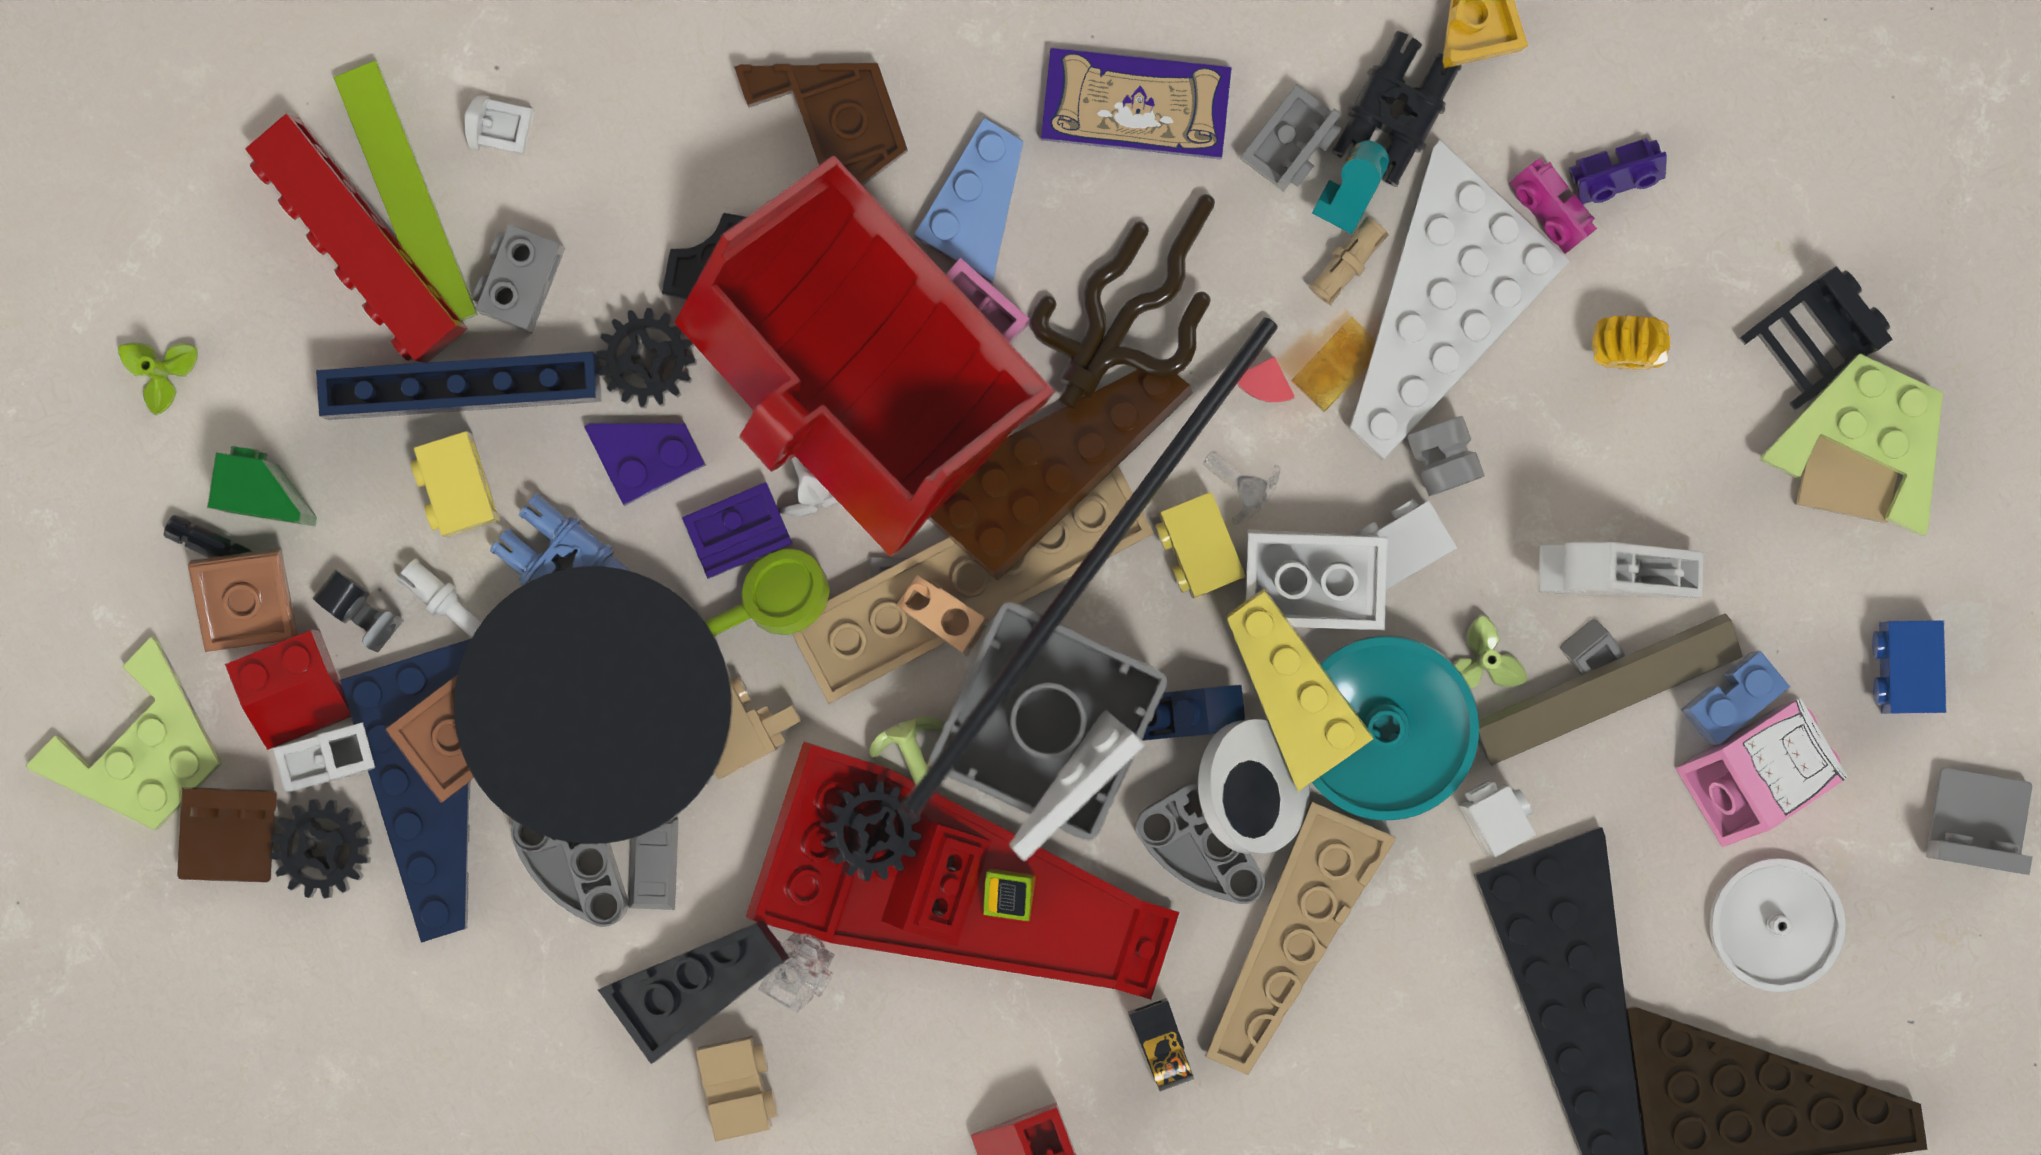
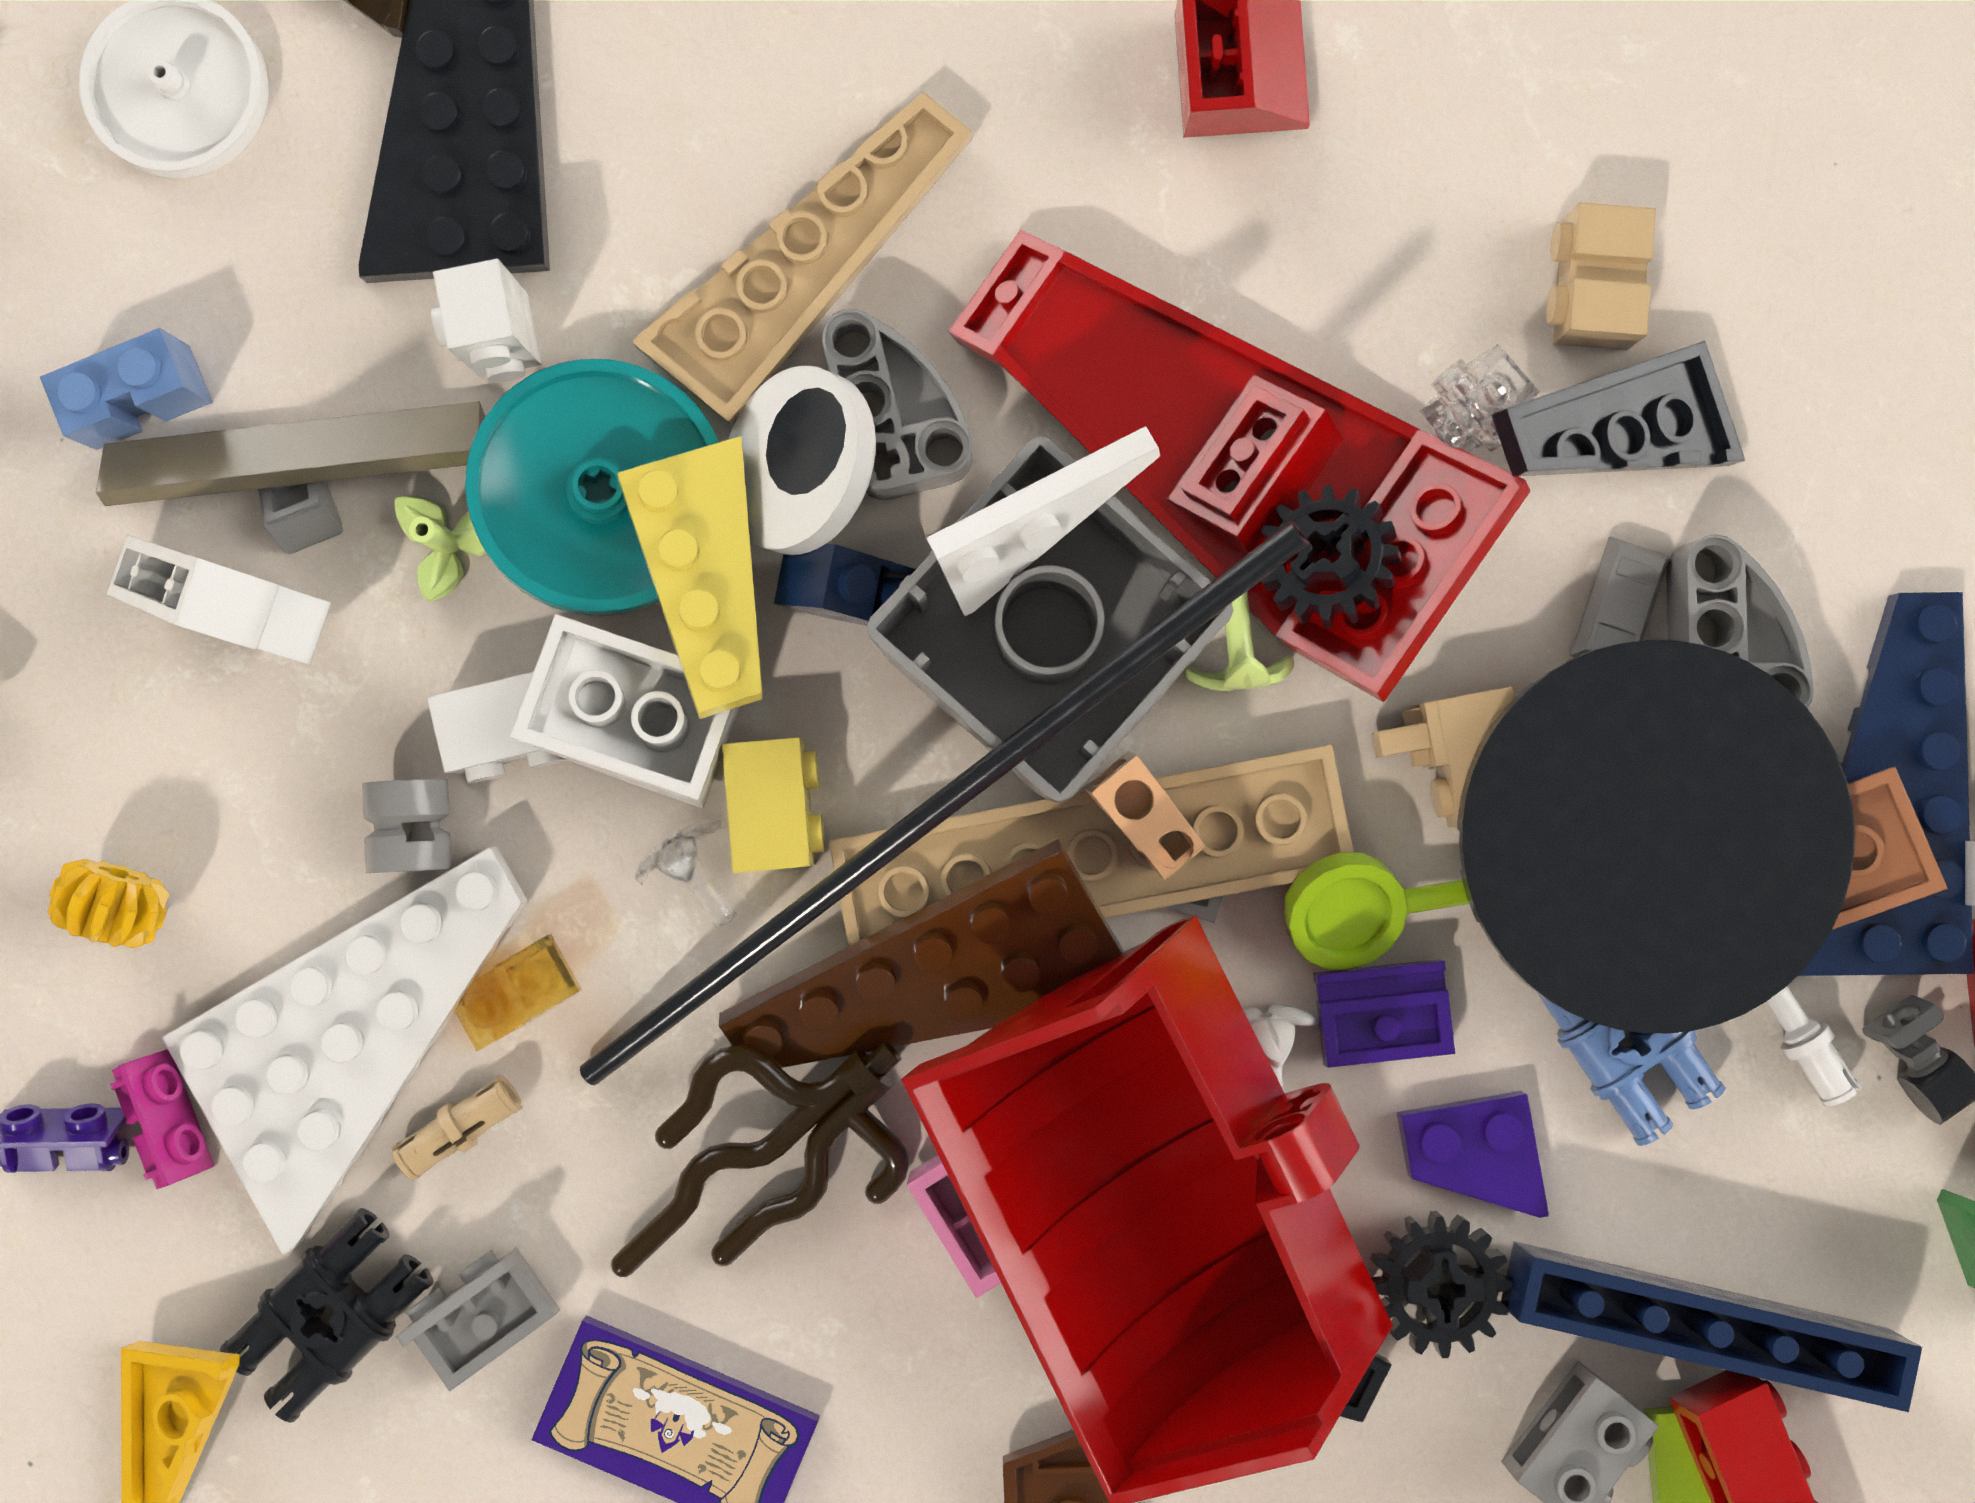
camera: 160 degrees left, 0 degrees up
(454, 485) = (1750, 1191): light yellow brick -> none
(975, 201) = (931, 1362): light blue wing -> none
(1008, 894) = (1169, 416): slope -> none
(1161, 1044) = (1024, 169): black leg -> none
(1266, 382) = (617, 996): coral tile -> none
(1360, 177) = (396, 1237): teal leg -> none
(1762, 773) = (121, 271): slope -> none

